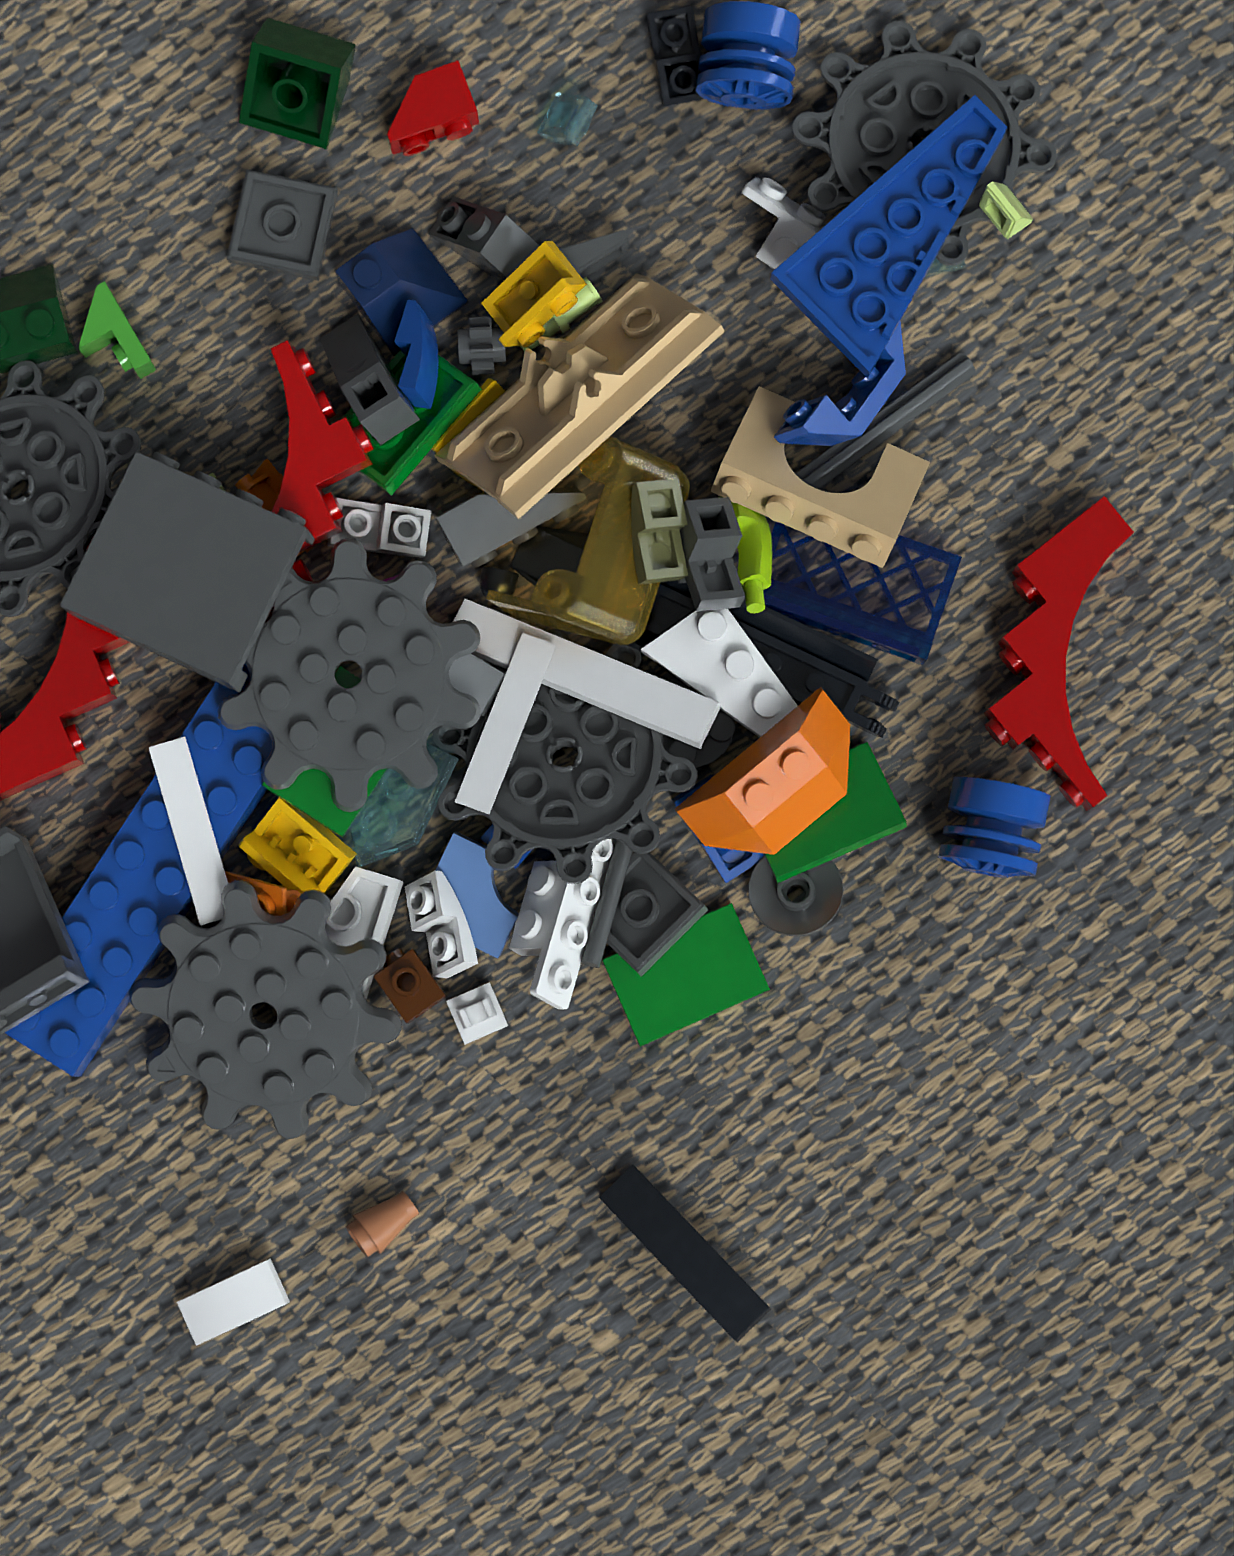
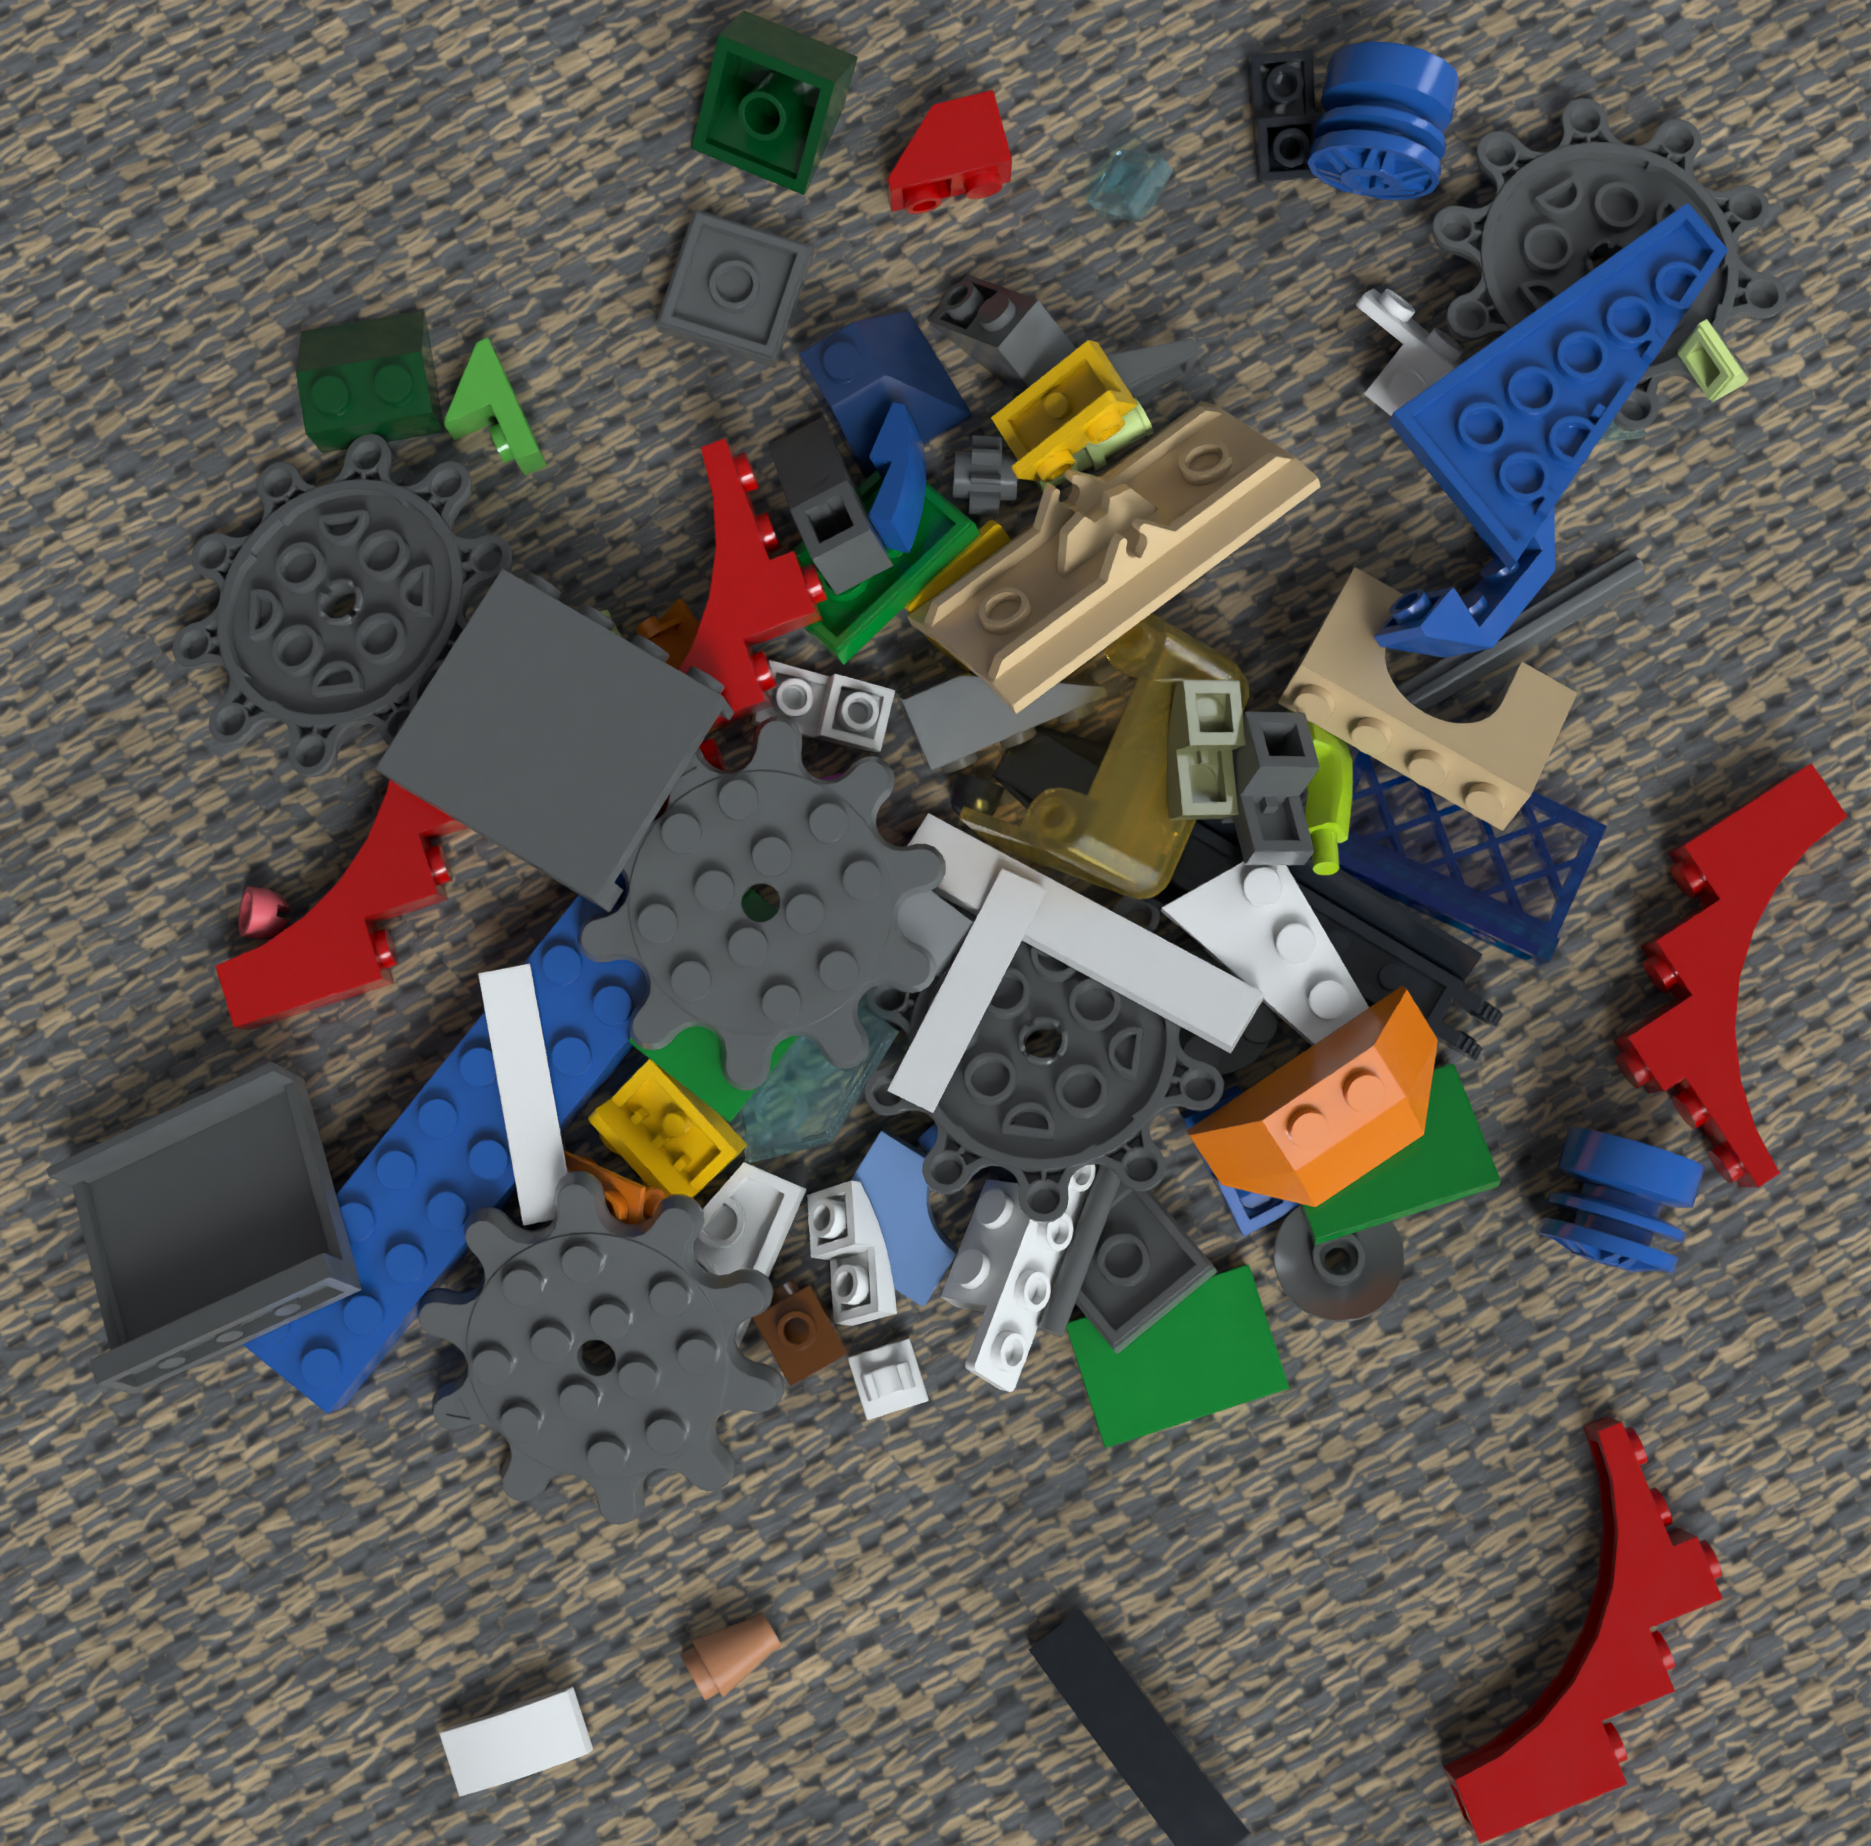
camera: 10 degrees right, 0 degrees up
(1038, 1097) = (1645, 1577): none -> red arch

